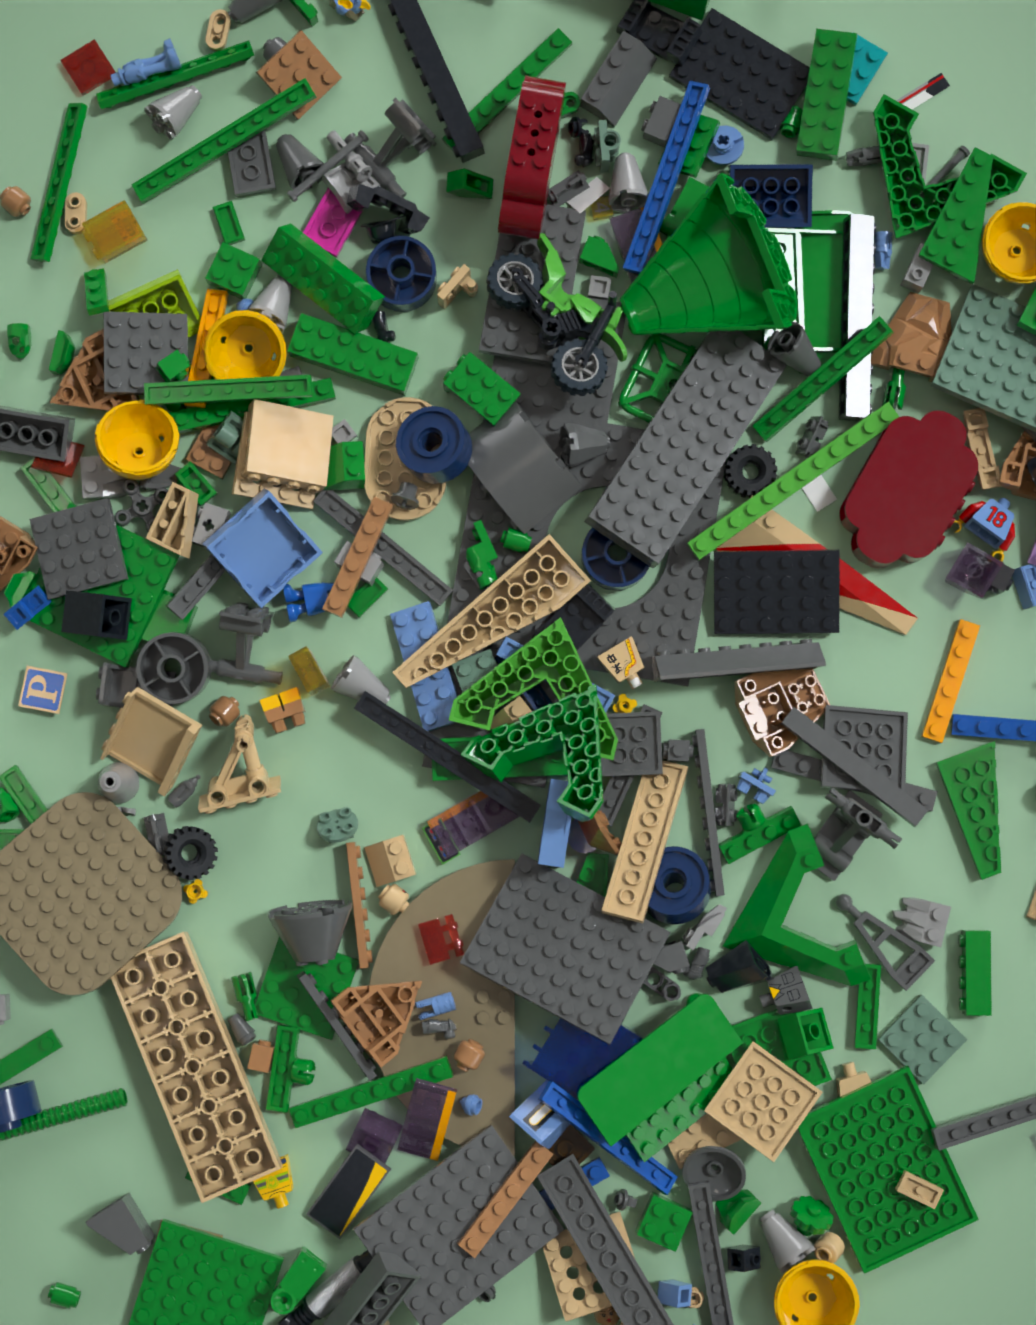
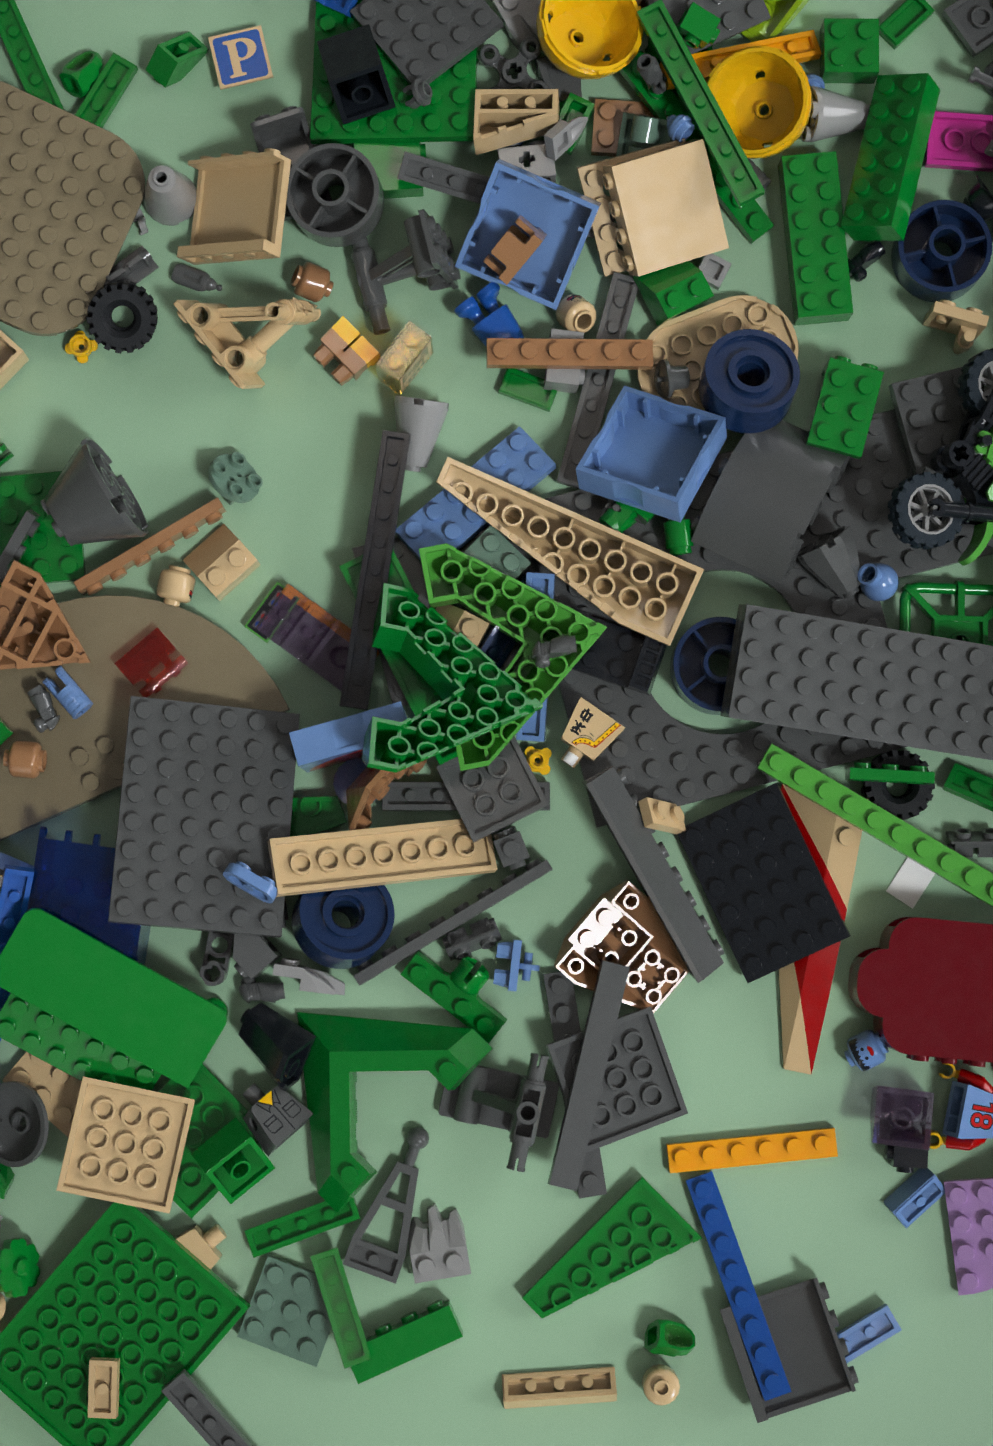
camera: 65 degrees right, 0 degrees up
(22, 734) = (175, 58): none -> green slope
(131, 575) = (421, 93): none -> dark grey plate
(191, 413) = (651, 73): none -> dark grey arm
(205, 493) = (563, 136): none -> light grey plate
(237, 411) = (679, 127): none -> medium blue plate
(270, 560) = (514, 249): none -> medium nougat panel
(331, 540) = (576, 313): none -> tan head
(453, 533) = (652, 453): none -> medium blue tile
(559, 658) = (554, 648): none -> dark grey arm
(608, 420) = (878, 581): none -> medium blue piece
(619, 940) = (242, 877): none -> medium blue plate
(701, 638) = (662, 815): none -> tan plate
(742, 473) = (890, 773): none -> green plate
(918, 574) = (866, 1050): none -> medium blue head
(936, 1004) = (341, 1308): none -> green plate

